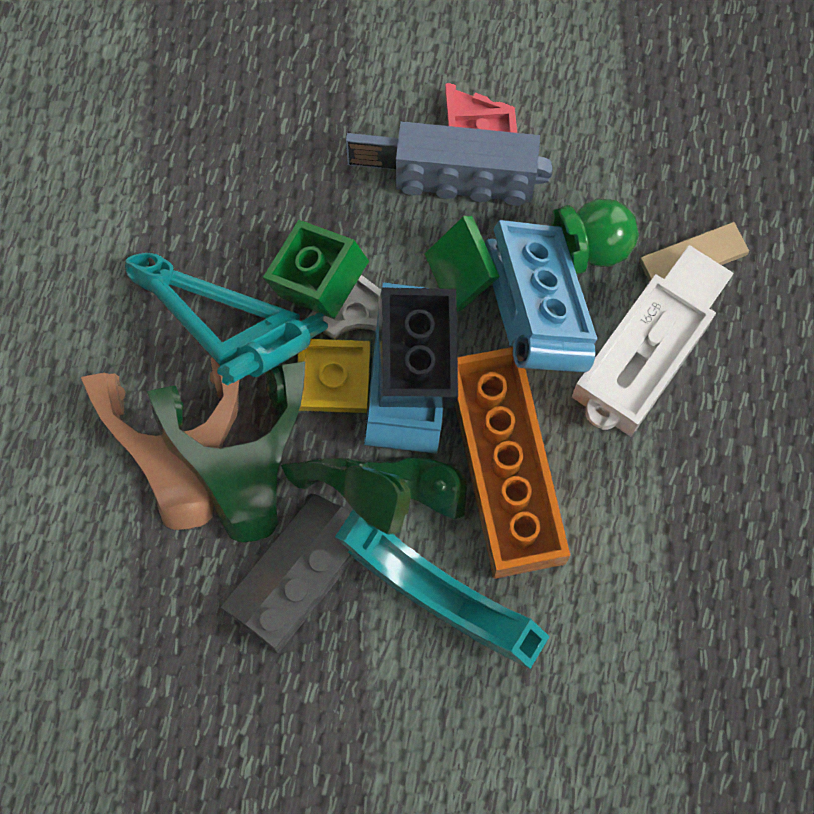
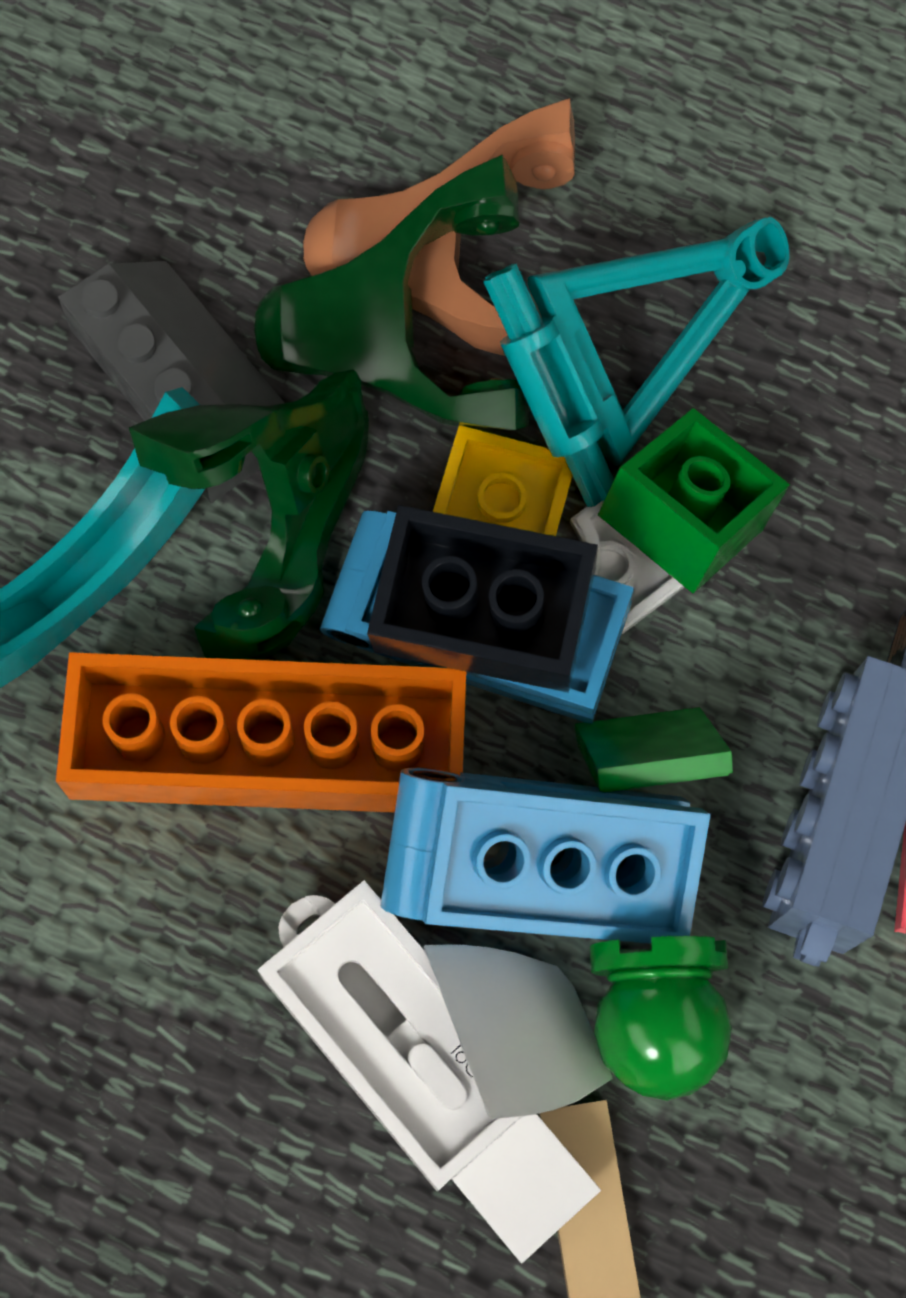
camera: 100 degrees right, 0 degrees up
(627, 295) = (518, 1029): none -> white sticker

